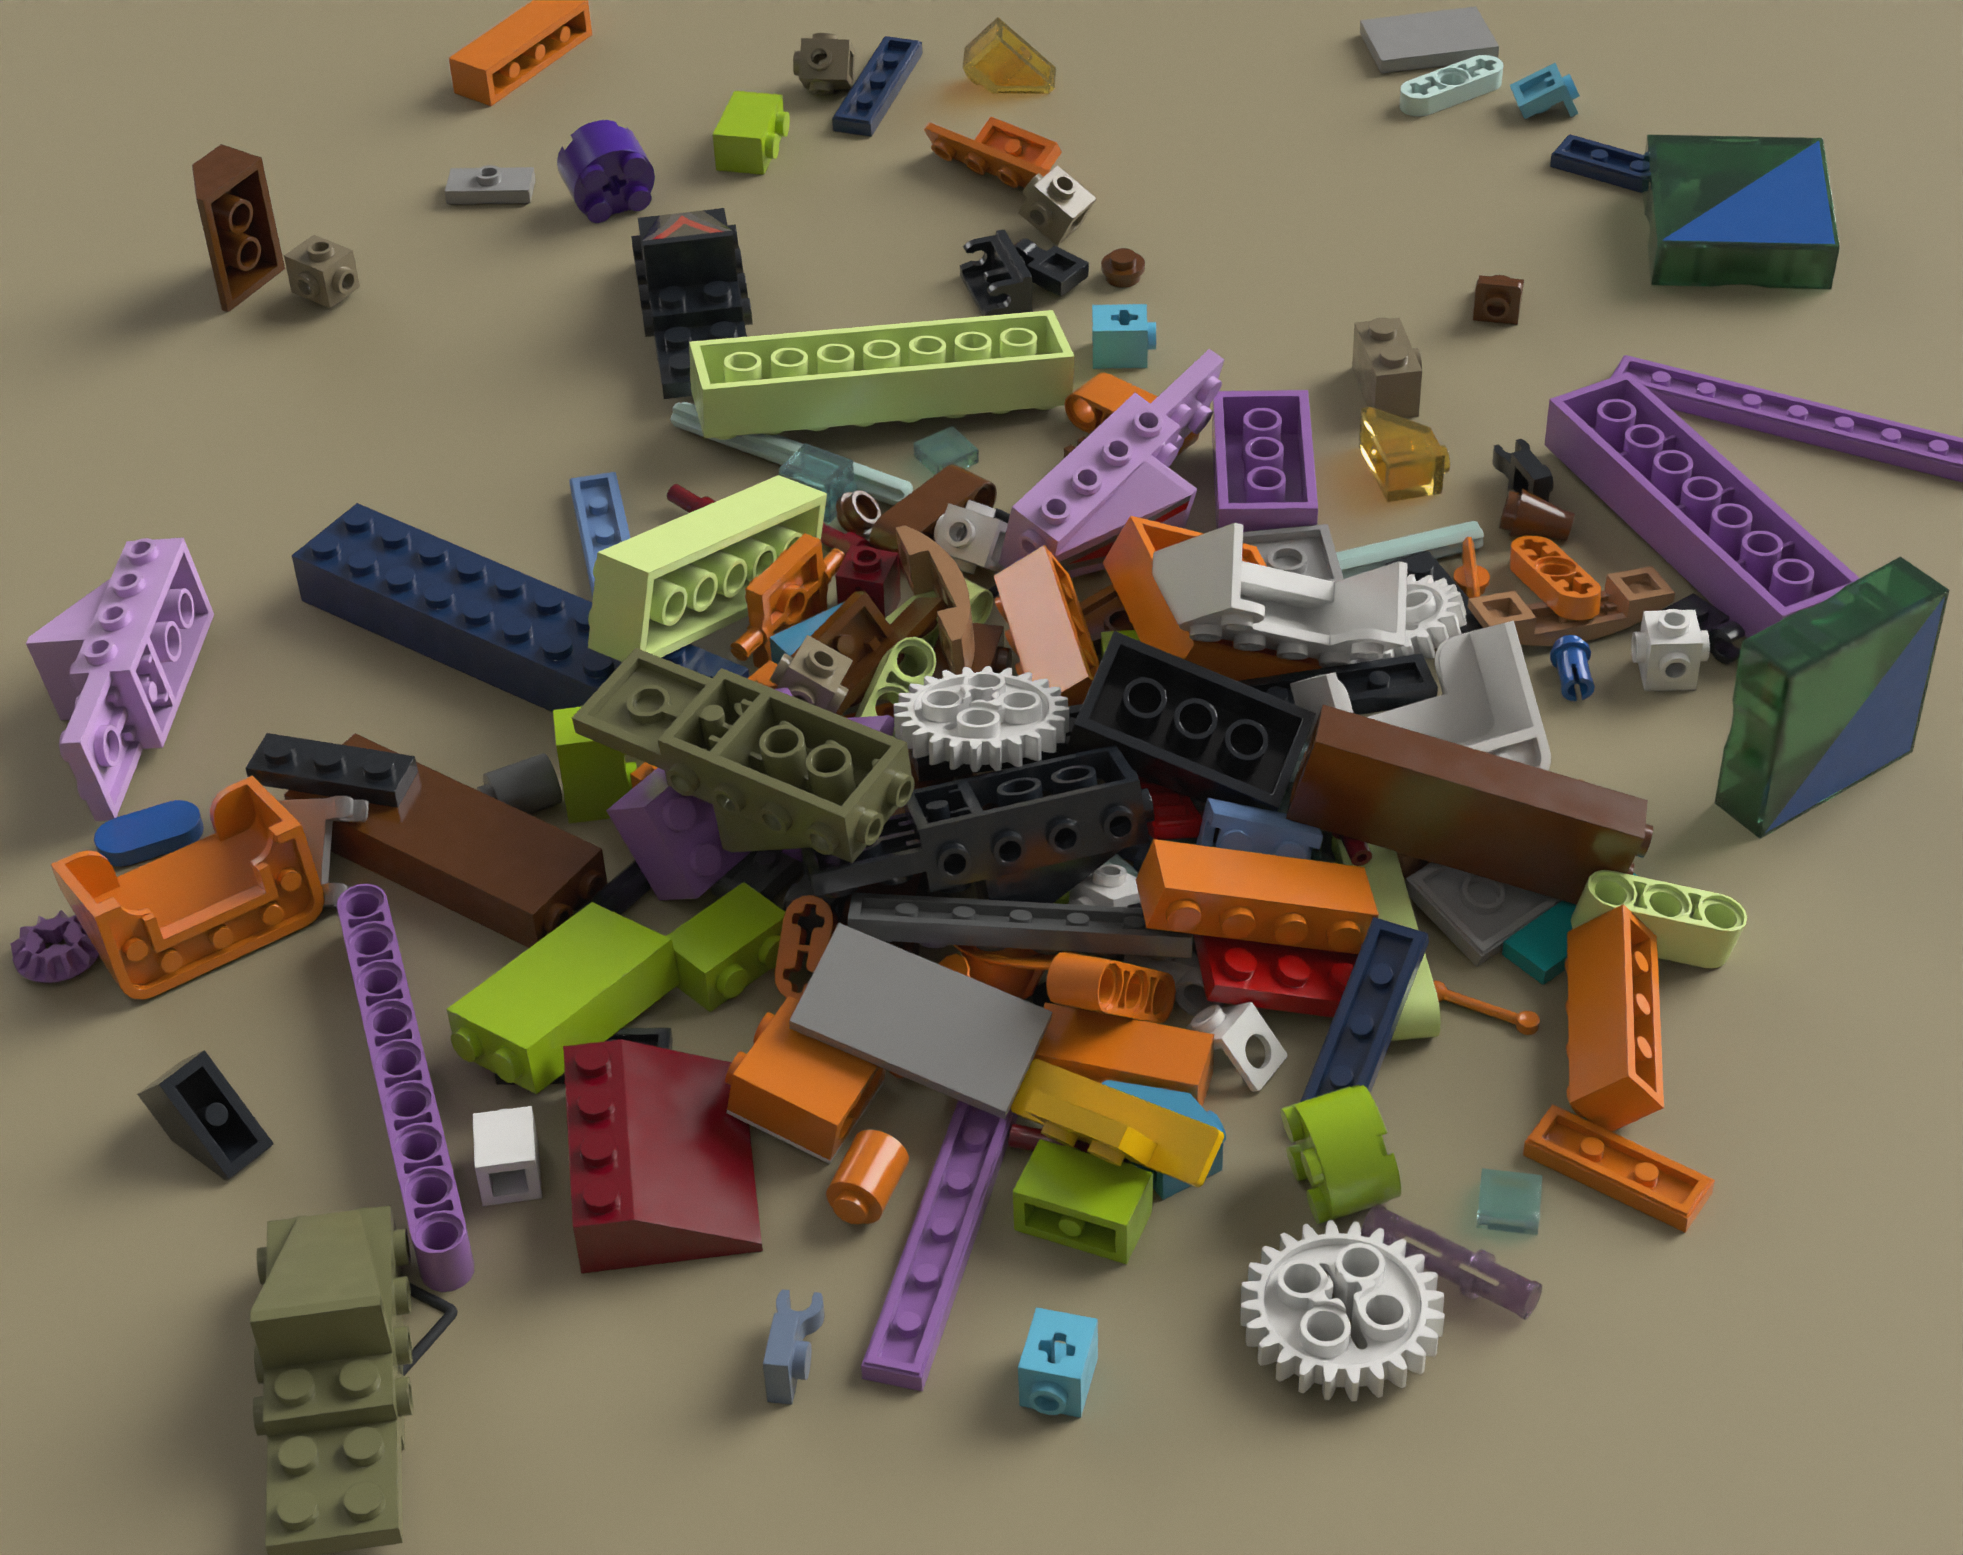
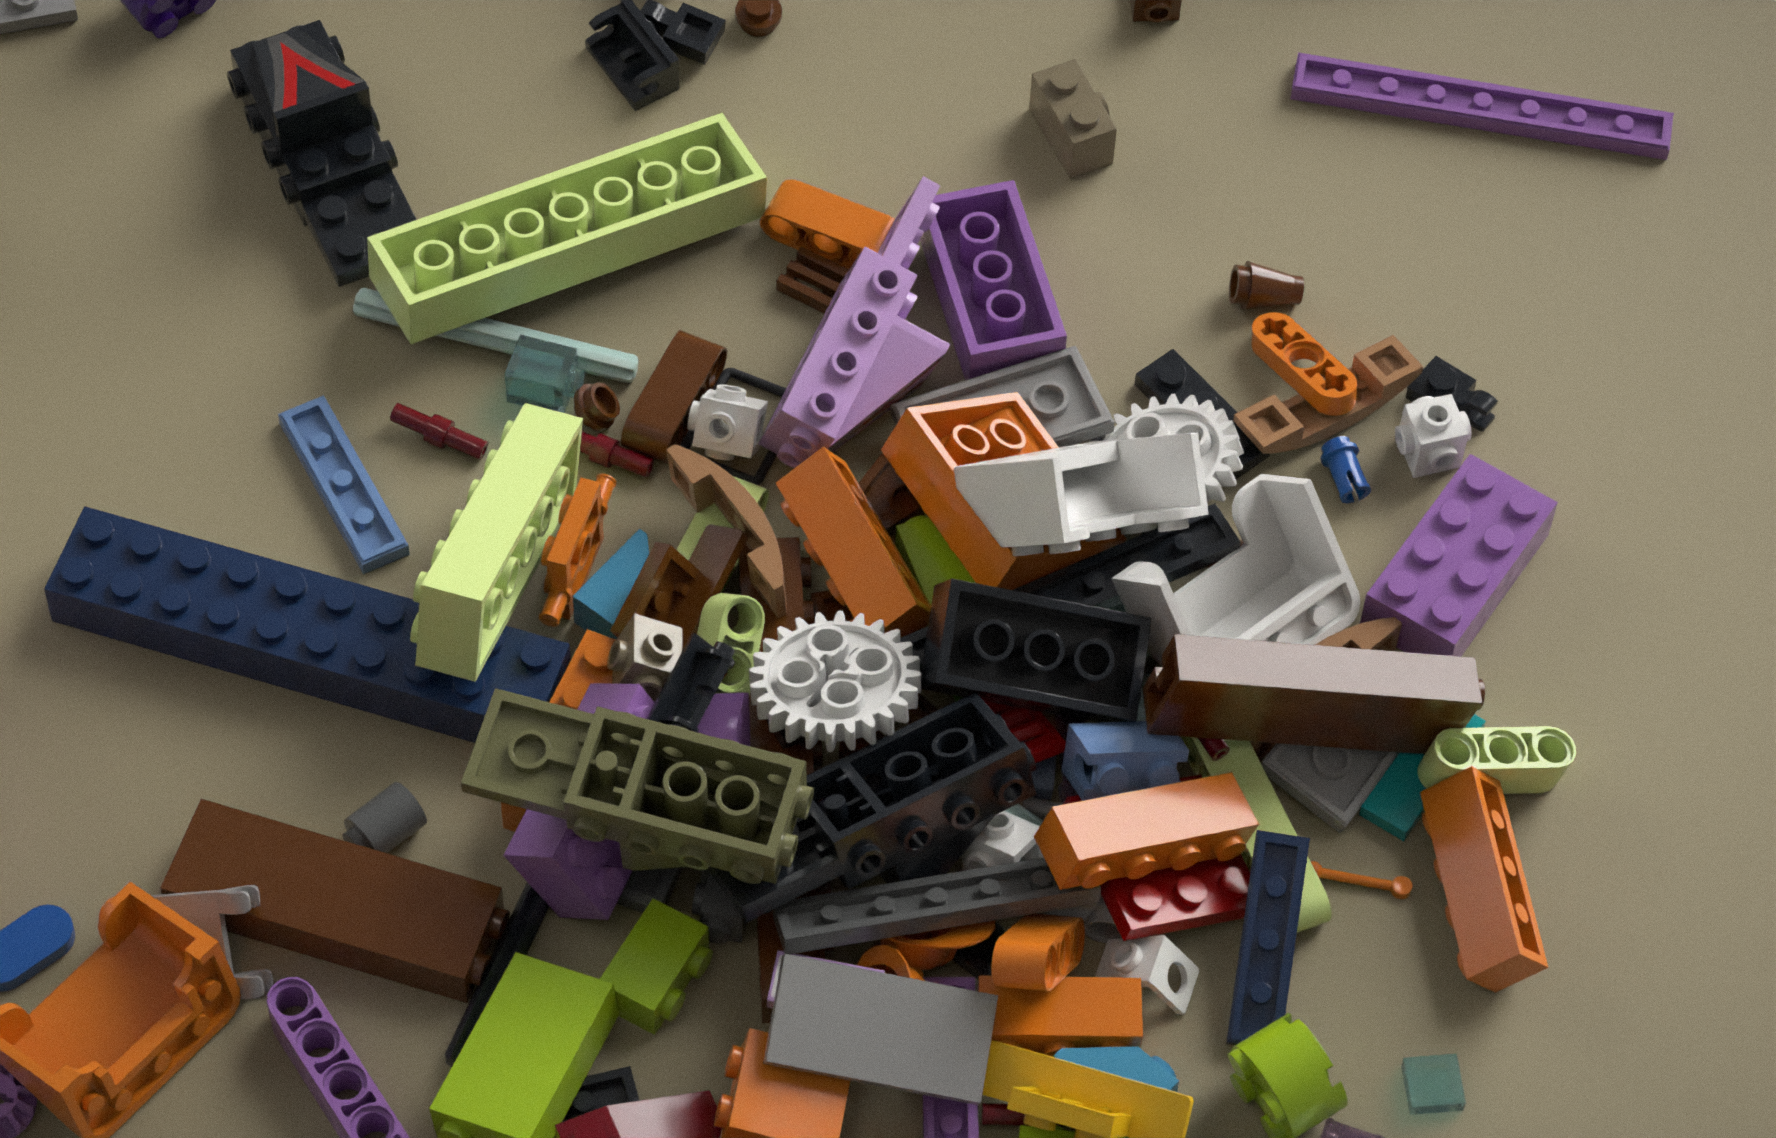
camera: 20 degrees left, 15 degrees up
(332, 769) = (200, 852): black plate -> none
(590, 771) = (439, 791): lime brick -> none
(793, 941) = (722, 959): orange beam -> none
(850, 687) = (692, 683): none -> black hinge
(870, 572) = (642, 493): dark red brick -> none
(945, 449) = (655, 303): clear light blue tile -> none
(1121, 336) = (789, 117): medium azure brick -> none
(1402, 455) = (1116, 230): clear yellow slope -> none
(1439, 542) = (1143, 352): light aqua axle -> none
(1470, 576) = (1220, 371): orange piece -> none
(1523, 470) = (1243, 236): black plate -> none
(1619, 1168) = (1517, 1027): orange tile -> none
(1661, 746) = (1461, 559): none -> medium lavender brick
(1691, 503) = (1425, 261): medium lavender brick -> none
(1830, 696) = (1606, 495): clear green tile -> none

